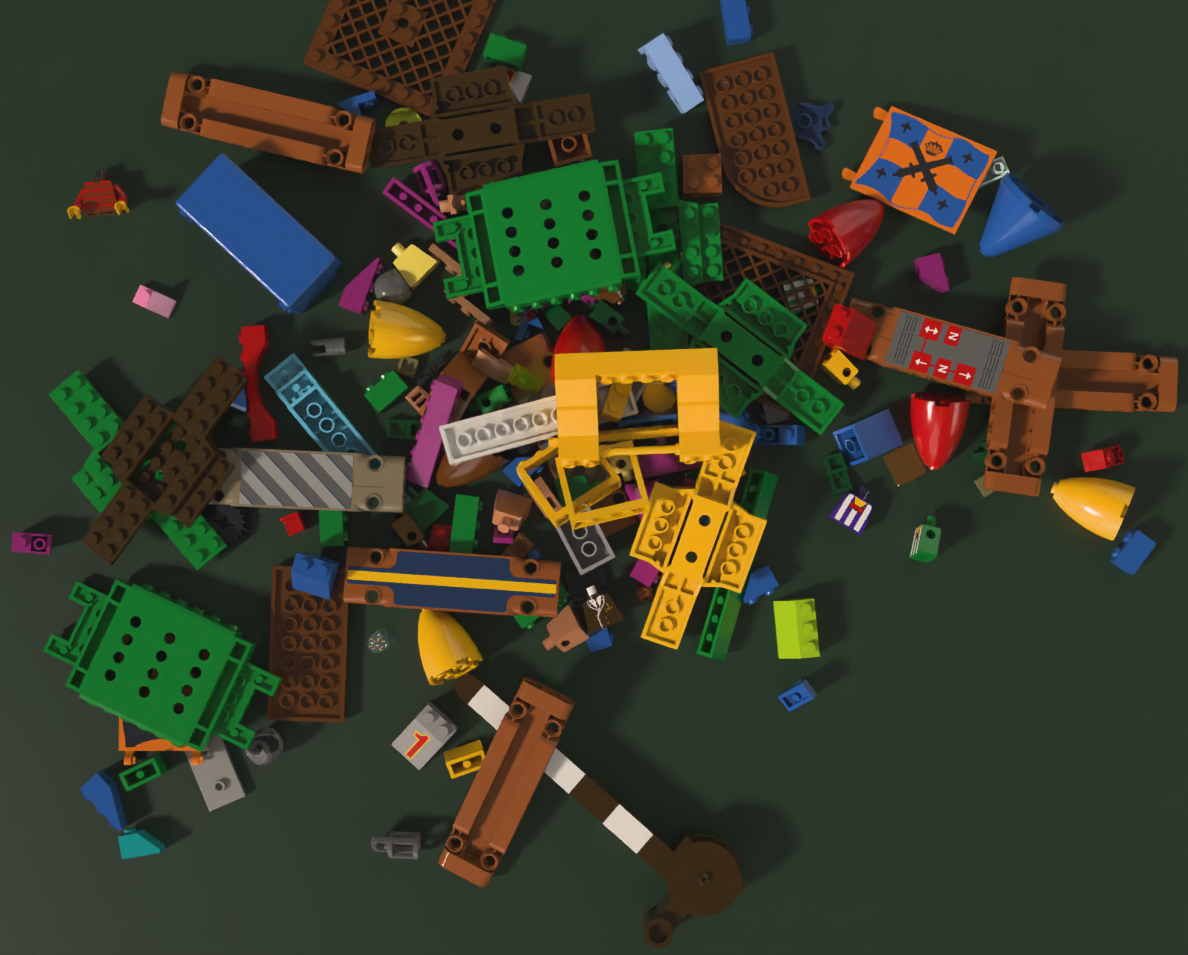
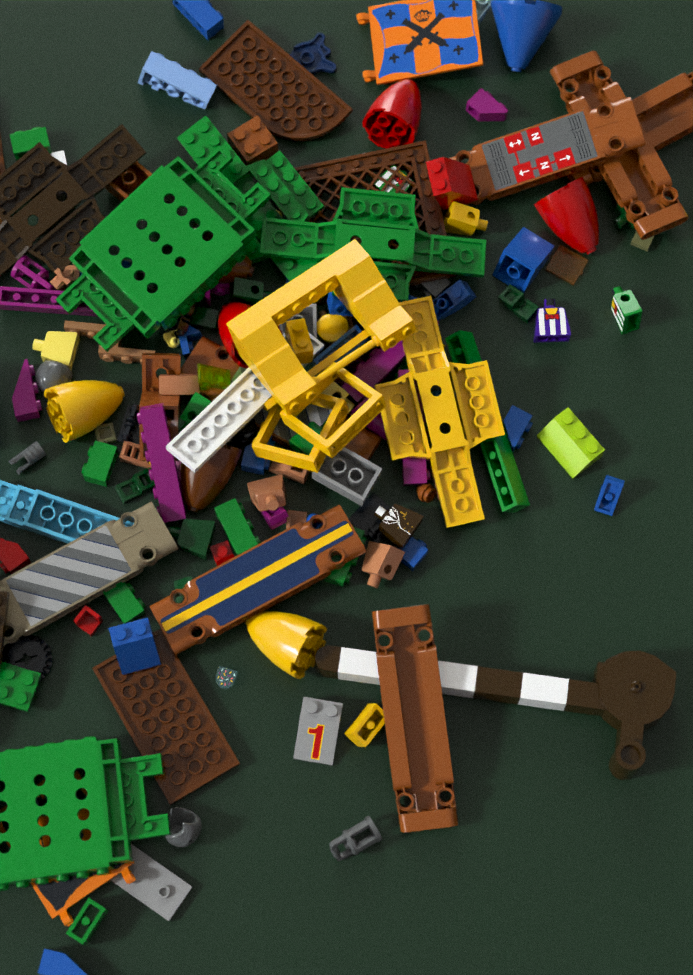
camera: 40 degrees left, 15 degrees down
(404, 524) = (185, 558): dark brown torso -> none

